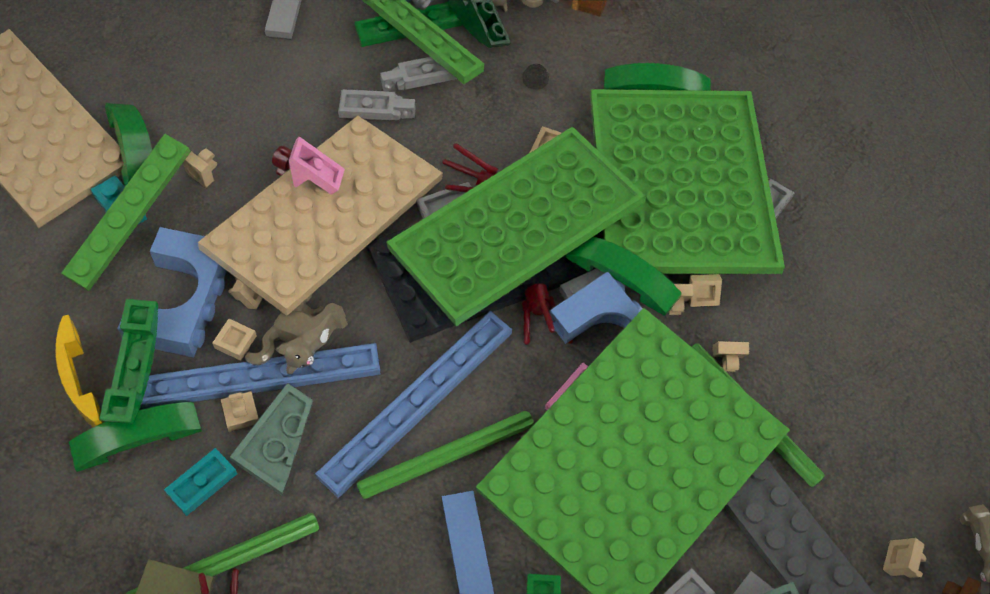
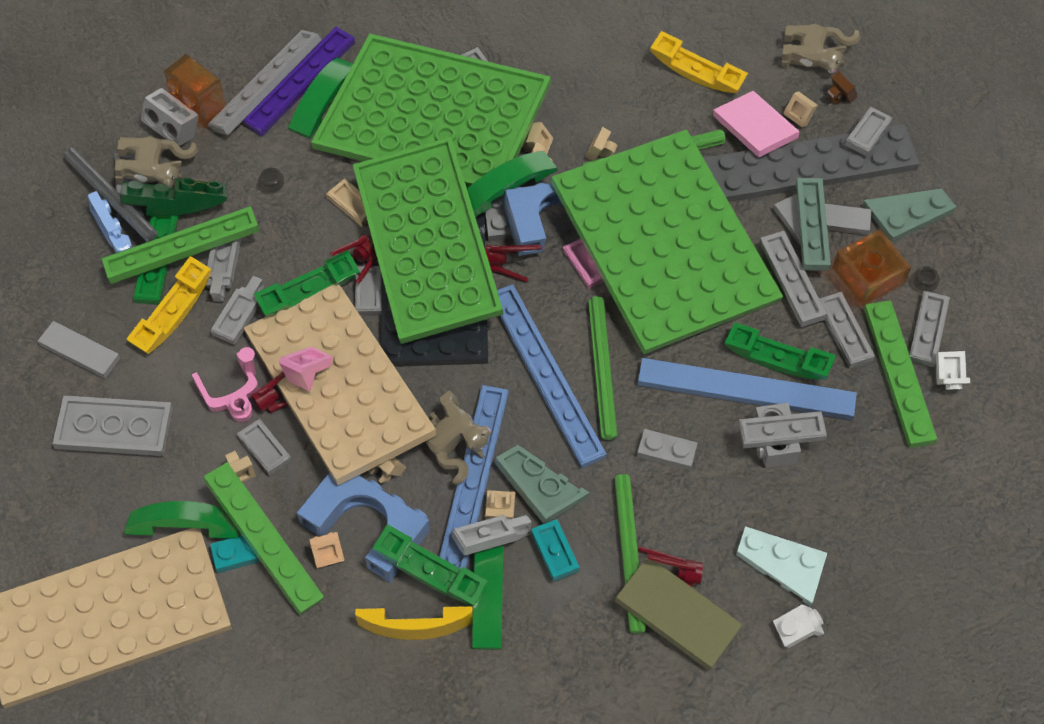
camera: 65 degrees left, 0 degrees up
(136, 270) = (326, 549): none -> light nougat tile
(195, 410) = (491, 533): none -> light grey hinge
(214, 57) = (113, 425): none -> light grey plate
(234, 339) = (436, 486): tan tile -> none
(236, 181) = (264, 447): none -> light grey tile
(272, 138) = (239, 398): none -> bright pink piece
(353, 55) = (173, 308): none -> yellow slope
(368, 559) = (667, 449): none -> light grey plate
(399, 129) = (335, 270): none -> green slope
(634, 50) = (297, 82): none -> dark purple tile
(646, 30) = (264, 82): none -> light grey tile
(852, 511) = (756, 123): none -> bright pink tile
(898, 418) = (697, 68): none -> yellow slope

